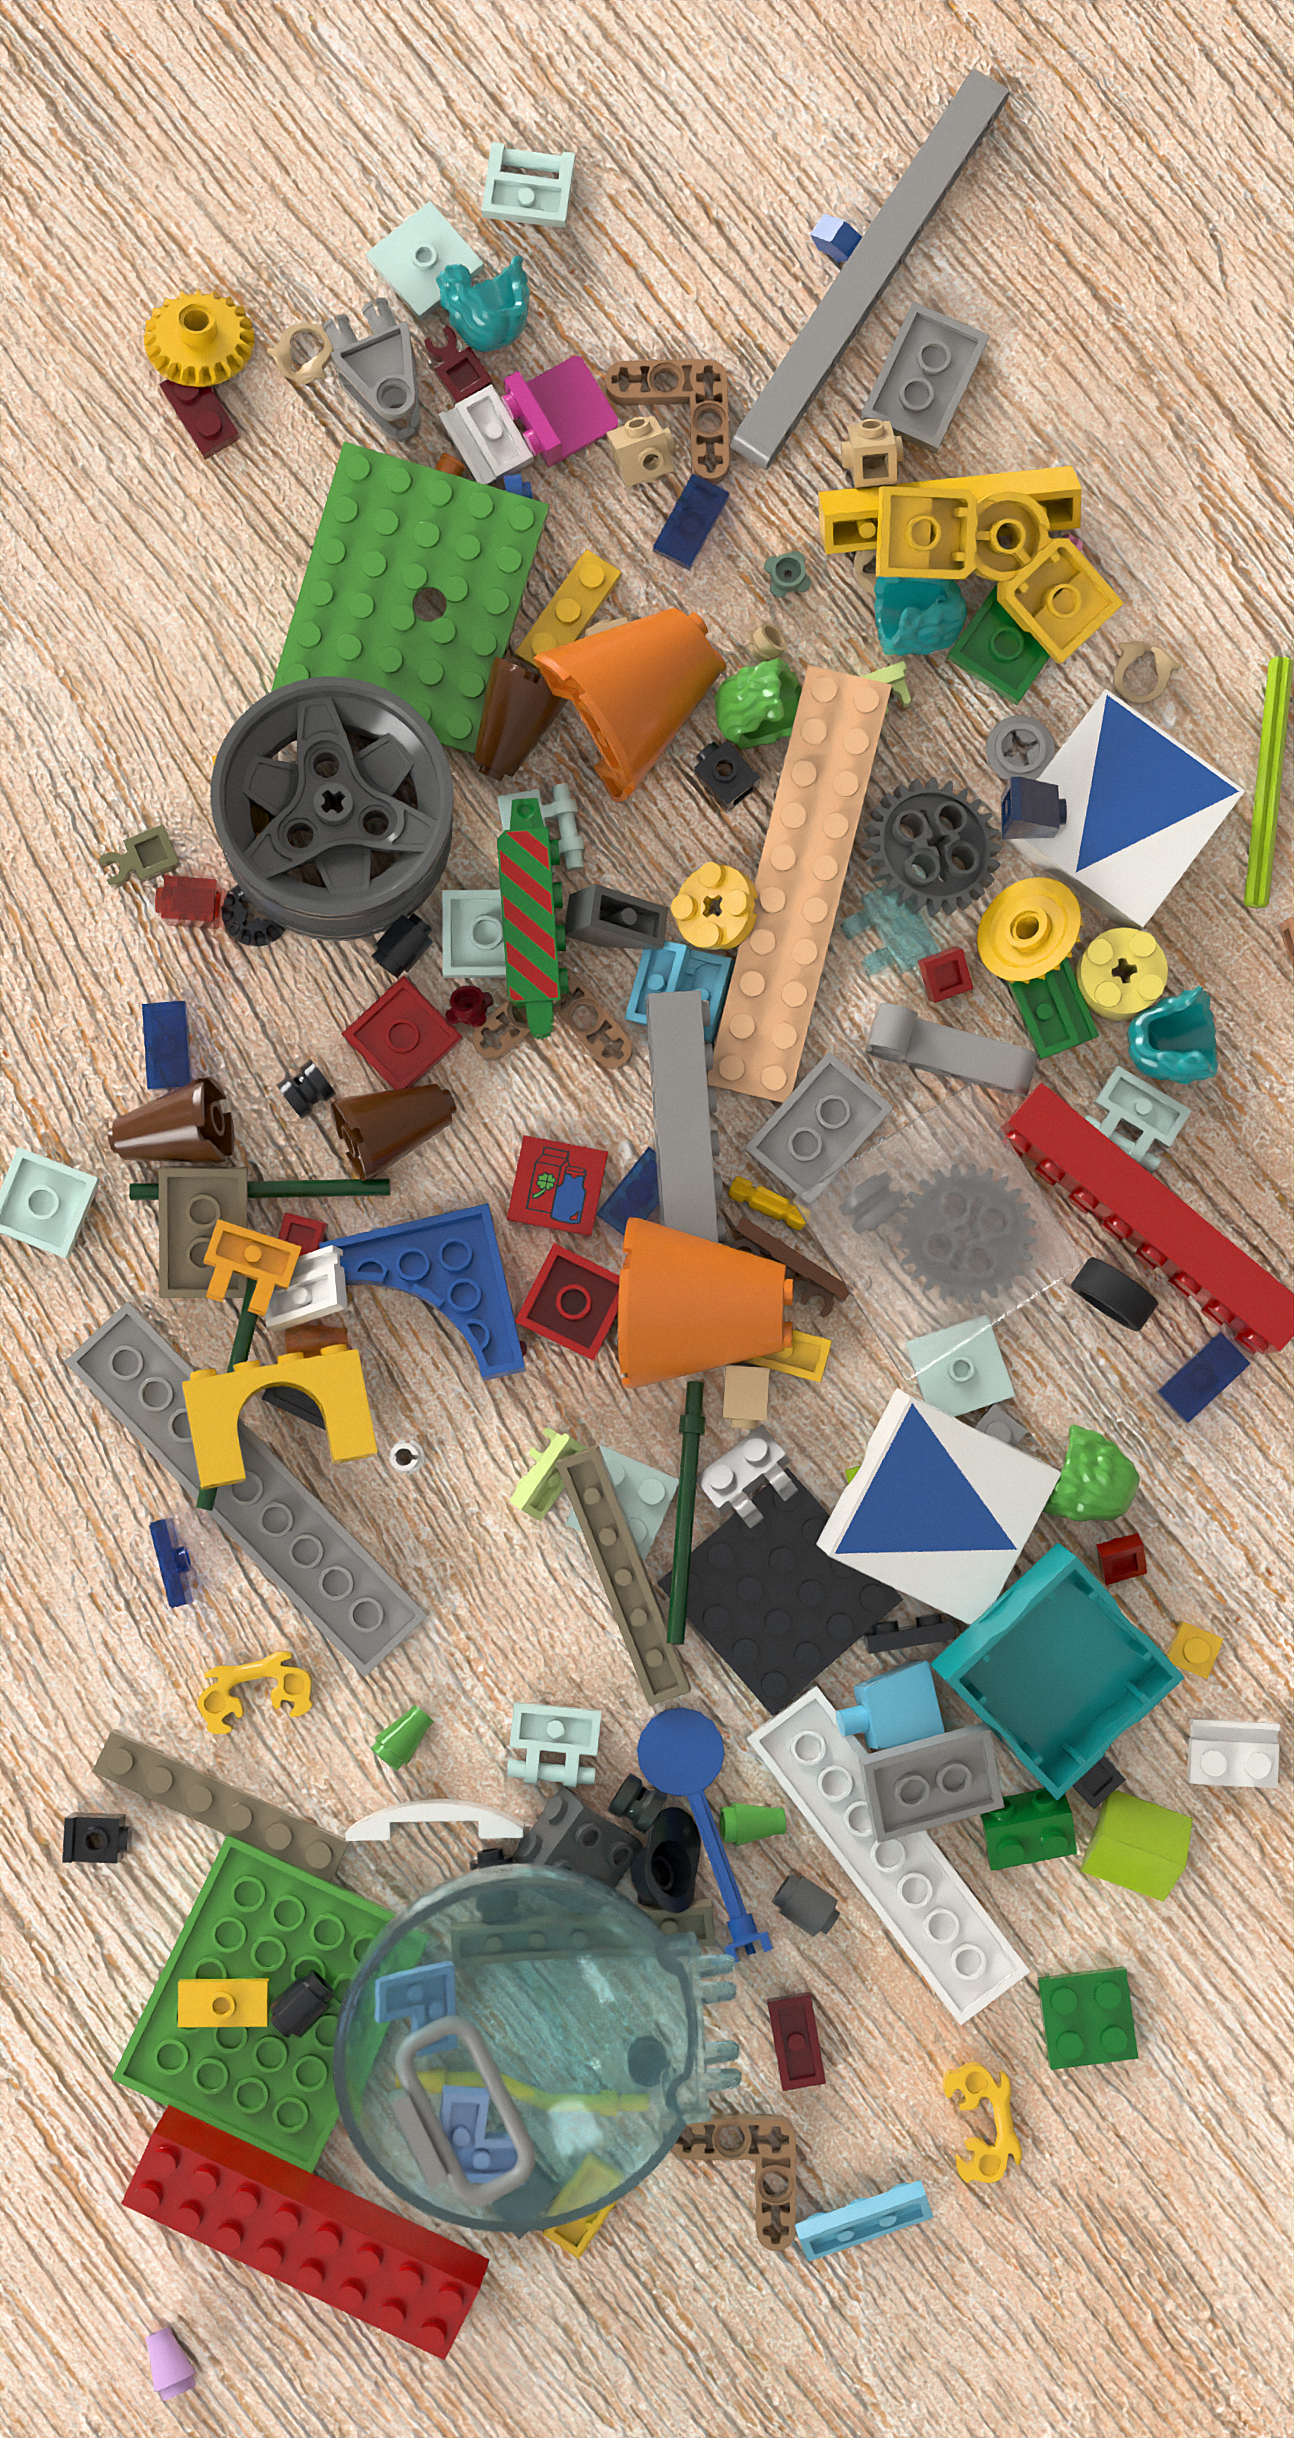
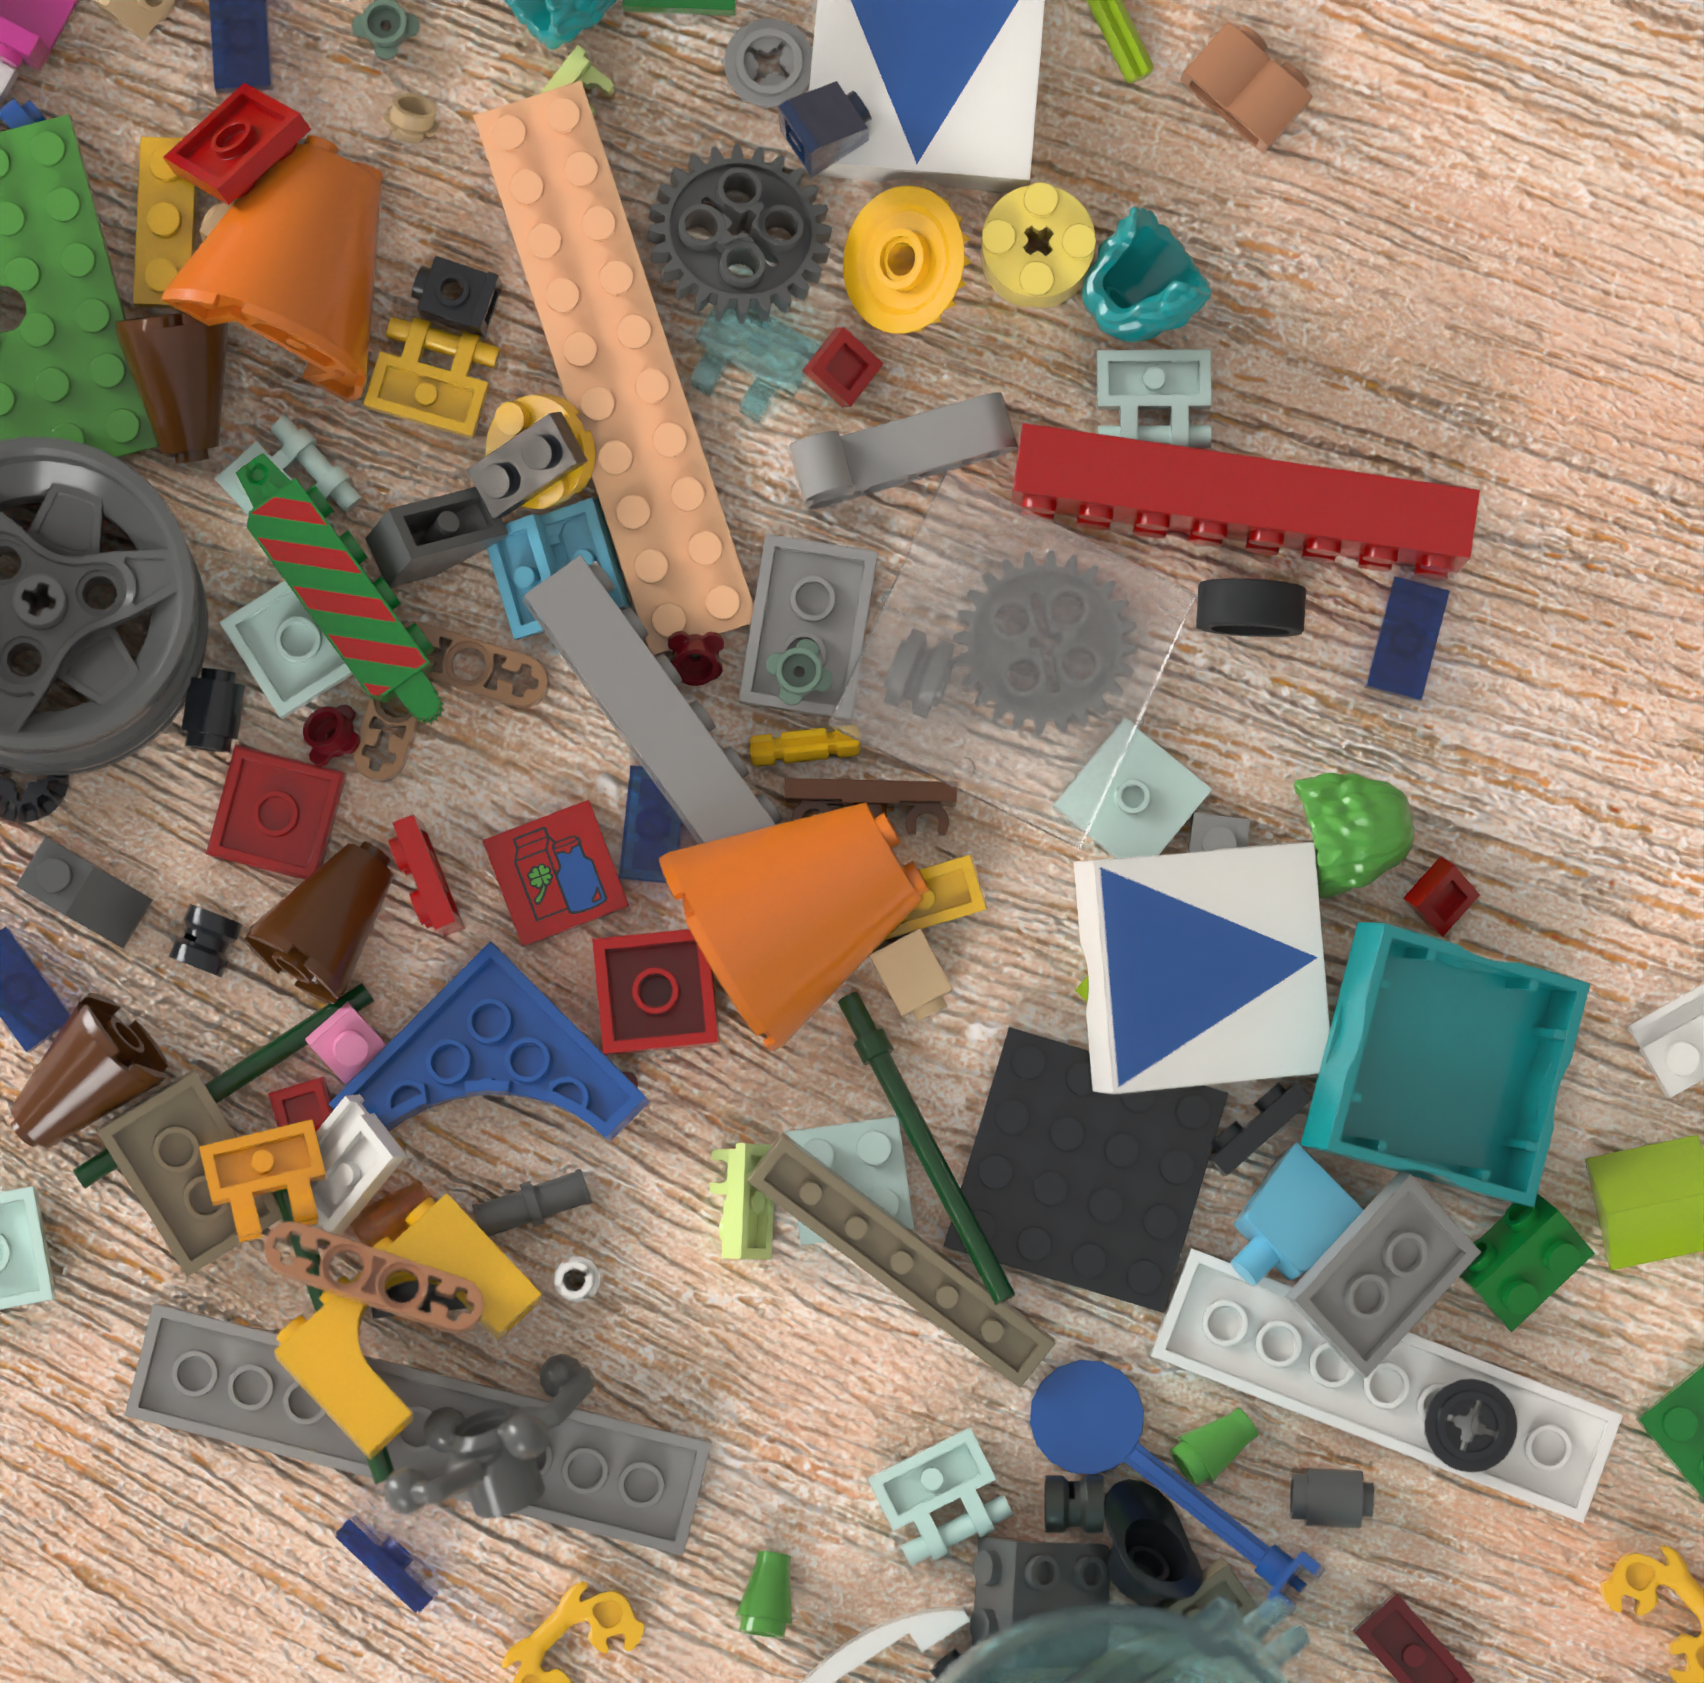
camera: 30 degrees left, 0 degrees up
(248, 1009) = (84, 892): none -> dark grey slope
(270, 1378) = (371, 1285): none -> nougat beam
(284, 1533) = (493, 1449): none -> dark grey wheel
(355, 1210) = (346, 1042): none -> bright pink plate
(409, 1389) = (532, 1203): none -> dark grey pin
(474, 1119) = (416, 856): none -> red plate
(645, 589) = (237, 144): none -> red plate
(667, 826) = (428, 393): none -> yellow plate
(702, 911) = (527, 465): none -> plate
(734, 1112) = (699, 669): none -> dark red plate
(742, 1471) = (961, 1061): light grey plate -> none
(758, 704) = (444, 194): bright green hair -> none
(803, 1144) = (804, 656): none -> sand green plate
(923, 1937) = (1494, 1412): none -> black gear
(1054, 1011) = (990, 334): green plate -> none
(1098, 1782) = (1568, 1159): black plate -> none
(1194, 1649) = (1584, 946): yellow plate -> none

